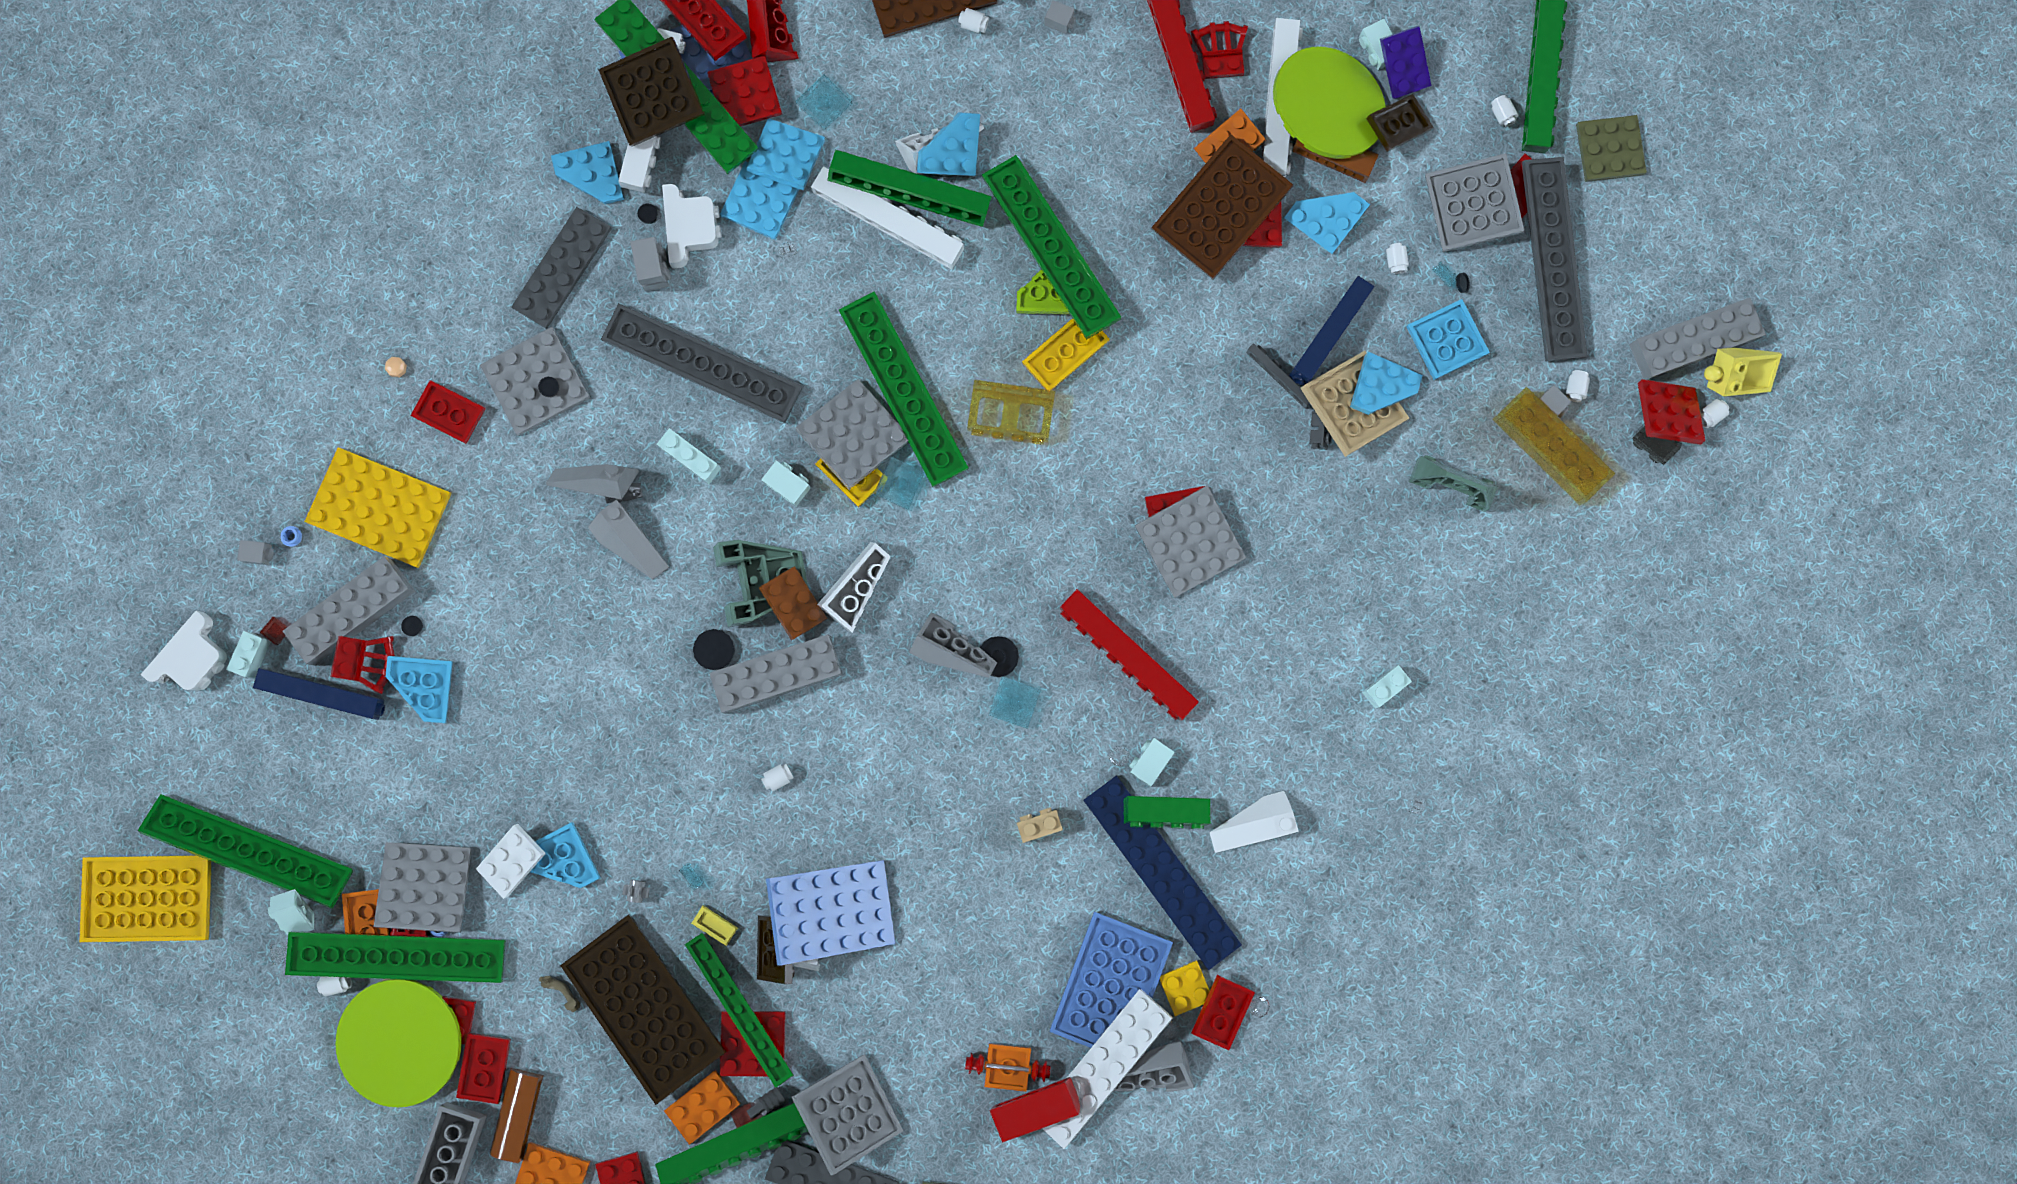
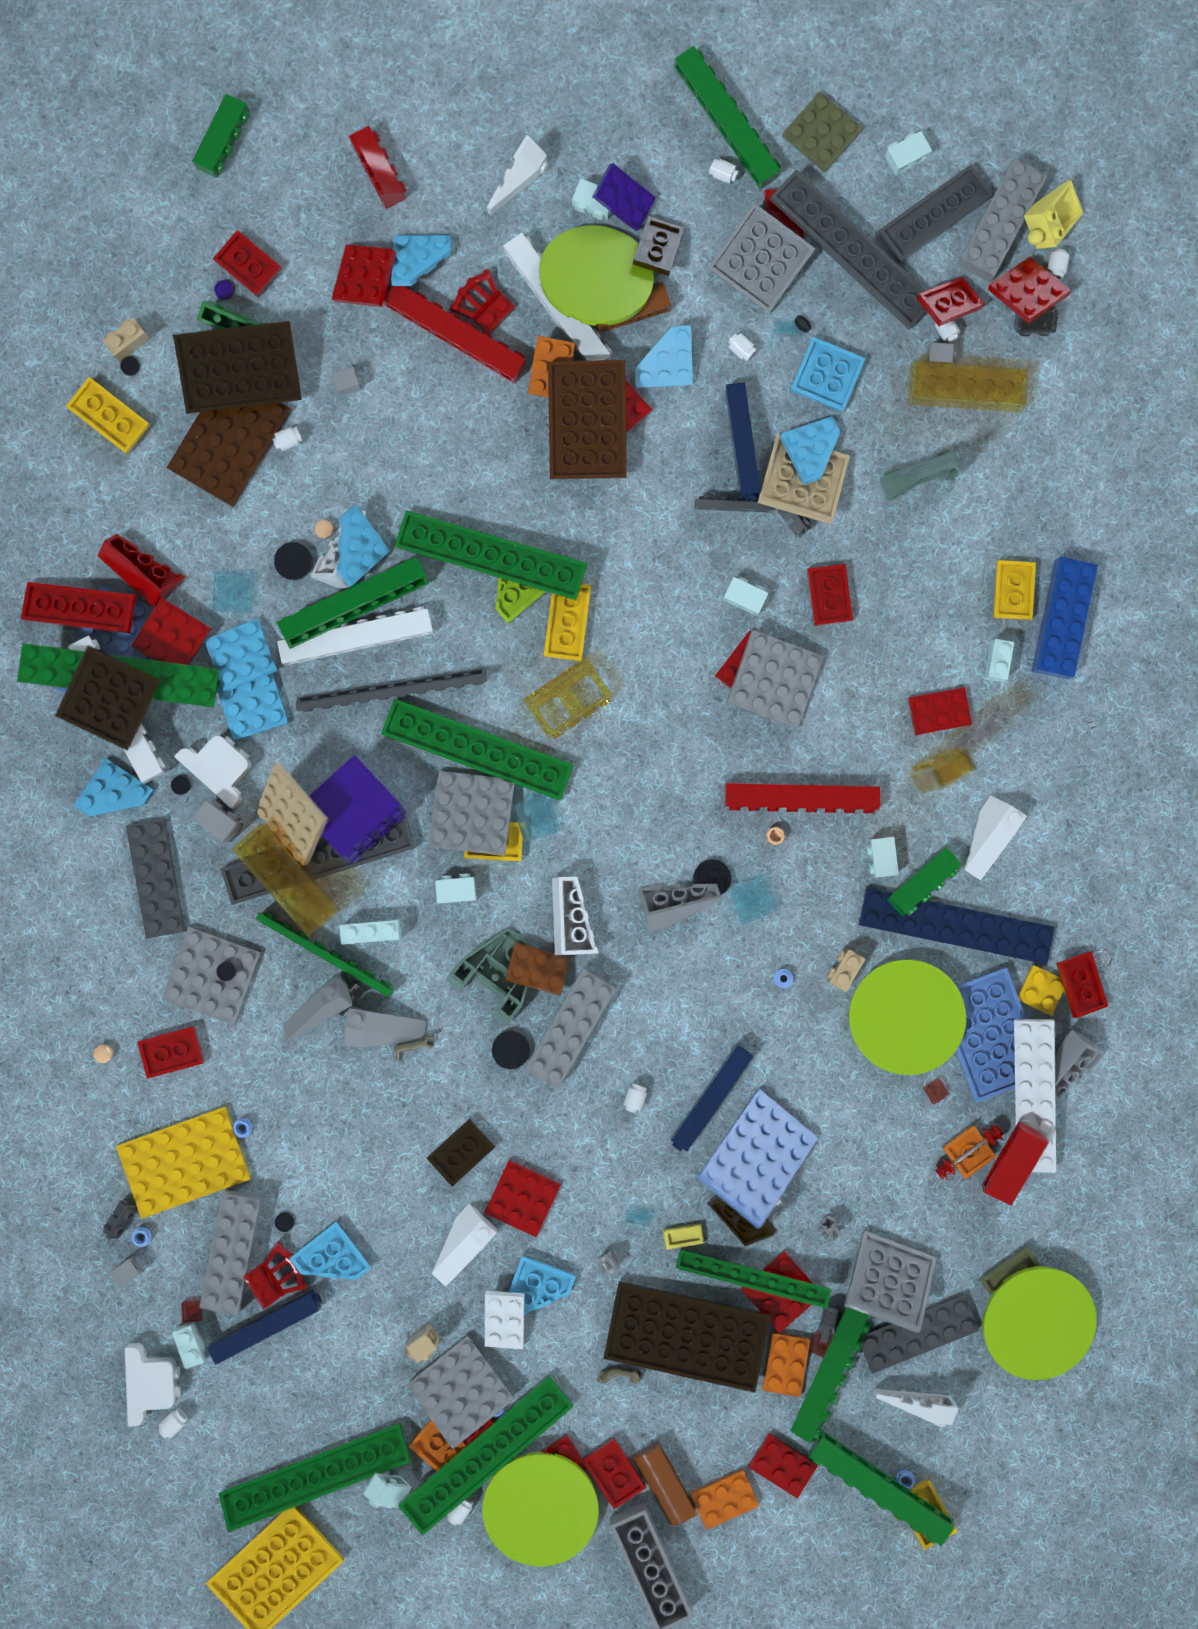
camera: 45 degrees left, 5 degrees up
(177, 705) = (172, 1423): none -> white brick
(280, 510) = (116, 1226): none -> dark grey hinge
(428, 821) = (422, 1344): none -> tan brick
(442, 521) = (238, 1132): none -> light blue plate
(538, 769) = (466, 1239): none -> white wedge
(600, 695) = (460, 1152): none -> dark brown plate
(614, 777) = (522, 1198): none -> red plate
(636, 433) = (319, 949): none -> green plate
(640, 577) = (413, 1046): none -> dark tan piece
(660, 355) = (286, 879): none -> clear yellow brick
(710, 306) = (291, 814): none -> tan plate
(760, 346) = (356, 809): none -> dark purple brick
(837, 832) = (711, 1098): none -> dark blue brick
(839, 1026) = (830, 1227): none -> light grey gear
(874, 280) = (386, 690): none -> dark grey plate
(892, 118) = (293, 561): none -> black tile
(939, 114) = (324, 529): none -> light nougat tile
(978, 793) = (778, 974): none -> light blue plate
(1025, 993) = (936, 1091): none -> clear red tile
(1055, 909) = (907, 1017): none -> lime tile
(1079, 667) = (775, 835): none -> light nougat tile
(1226, 455) = (745, 596): none -> light aqua brick
(1260, 727) = (942, 769): none -> clear yellow brick
(1295, 514) = (829, 594): none -> red plate
(1302, 686) = (939, 711): none -> red plate
(1449, 642) = (1014, 590): none -> yellow plate
(1471, 700) = (1064, 618): none -> blue brick
(1598, 366) = (950, 301): none -> red plate
(1647, 288) = (935, 213): none -> dark grey plate
(1666, 222) = (908, 152): none -> light aqua brick

